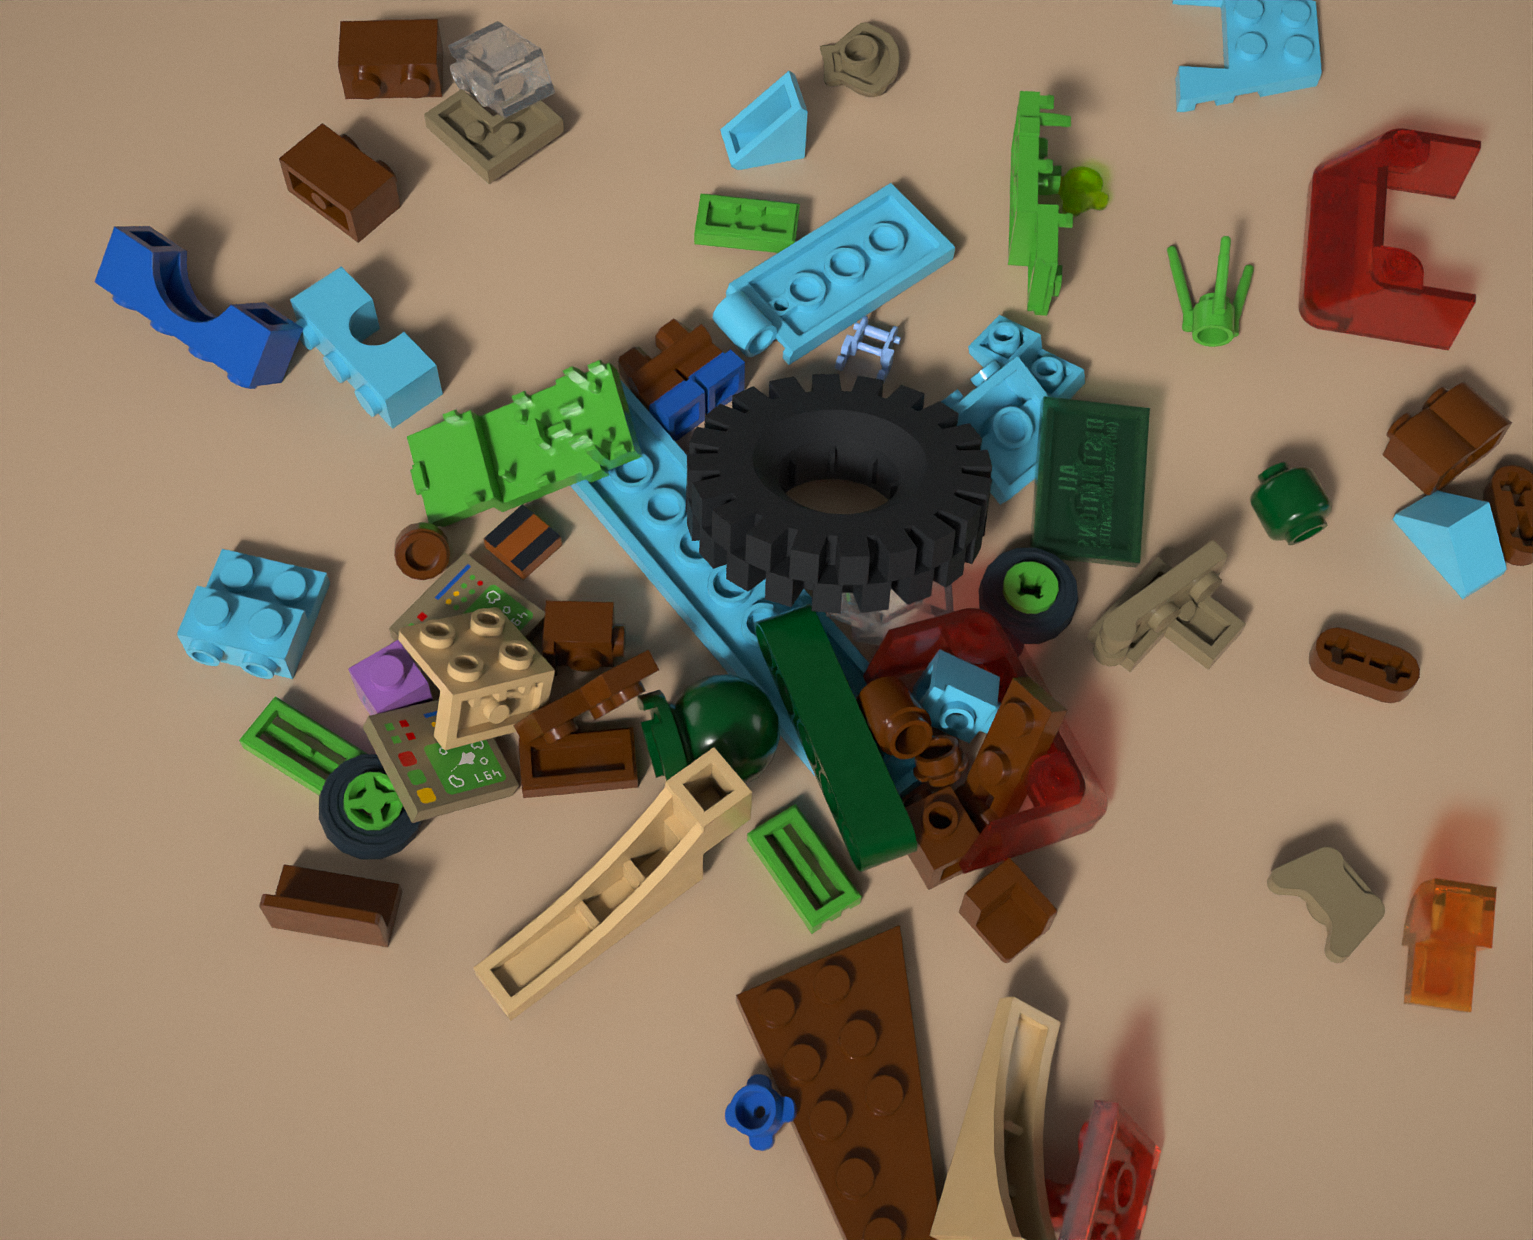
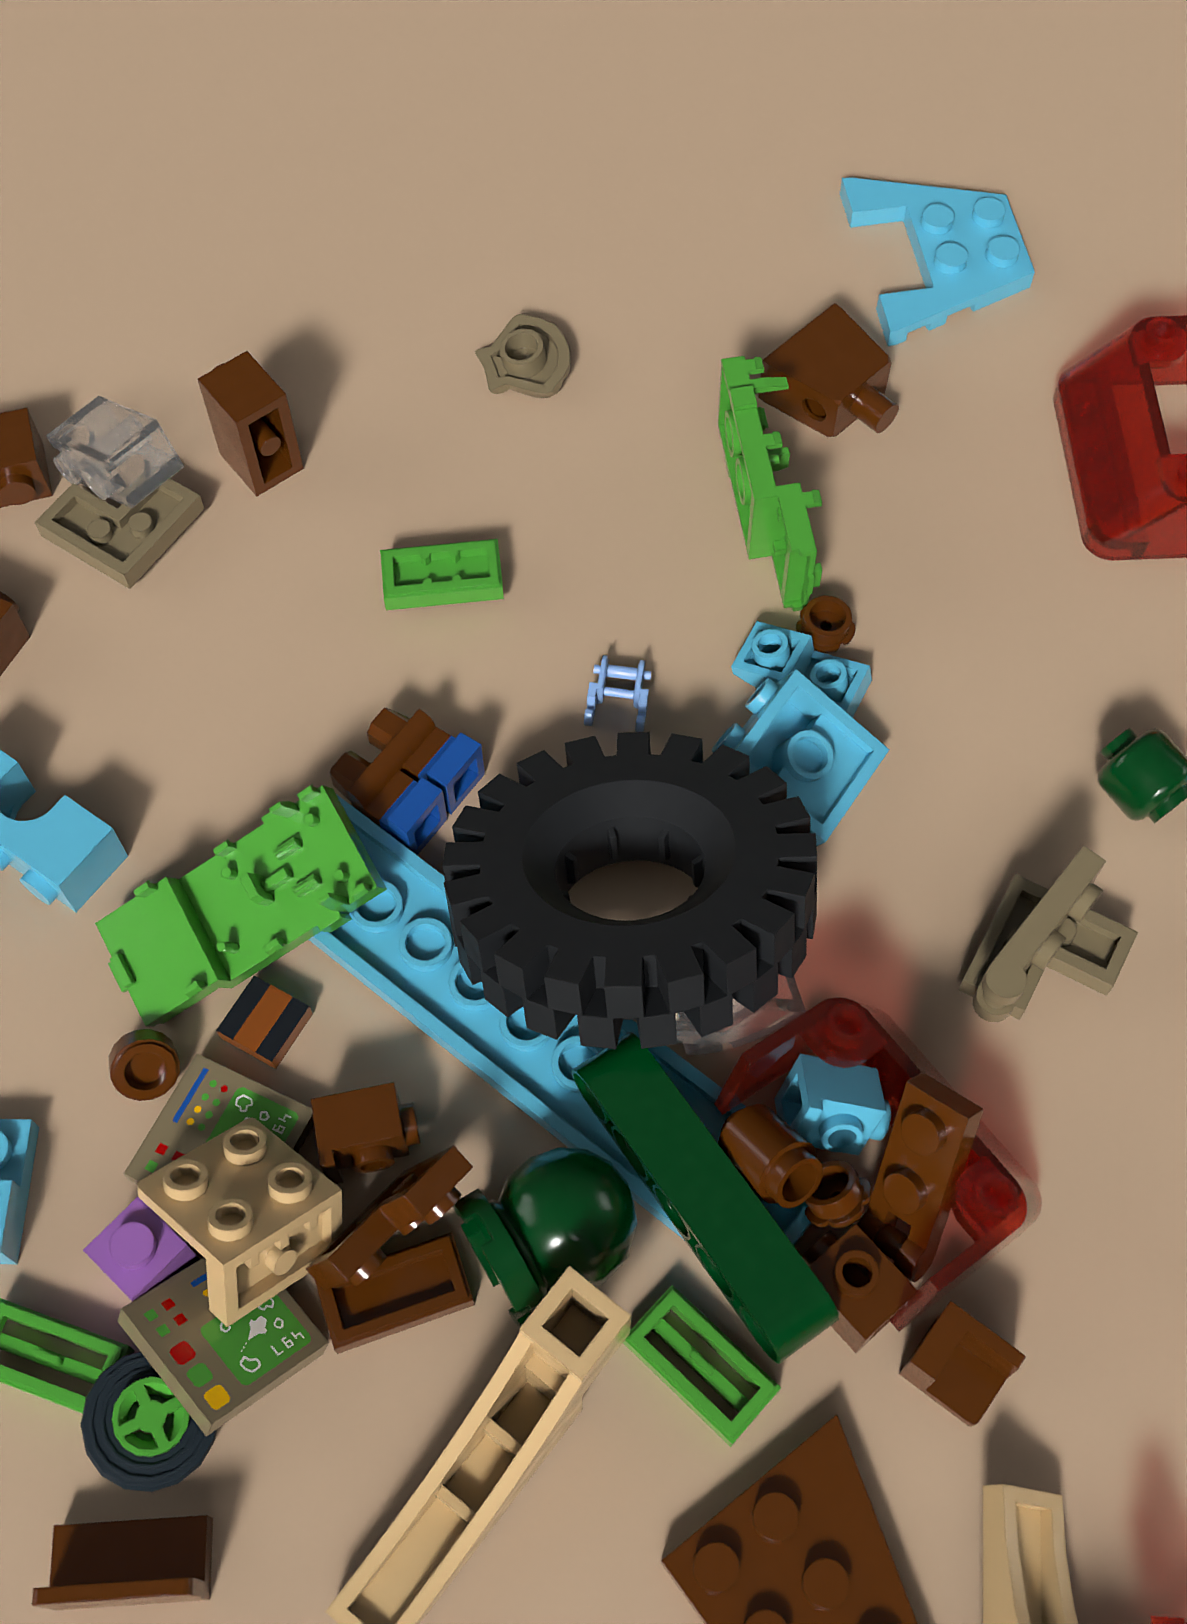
camera: 10 degrees left, 0 degrees up
(618, 68) = (251, 422): none -> reddish brown brick
(769, 127) = (440, 456): medium azure slope -> none
(832, 276) = (554, 617): medium azure hinge -> none
(1029, 616) = (871, 974): black wheel -> none
(1059, 319) = (829, 612): none -> reddish brown plate
(1082, 191) = (817, 448): clear neon green plate -> none
(1090, 481) = (913, 800): clear green tile -> none
(1117, 126) = (831, 376): none -> reddish brown torso
(1214, 318) = (998, 570): bright green plant -> none

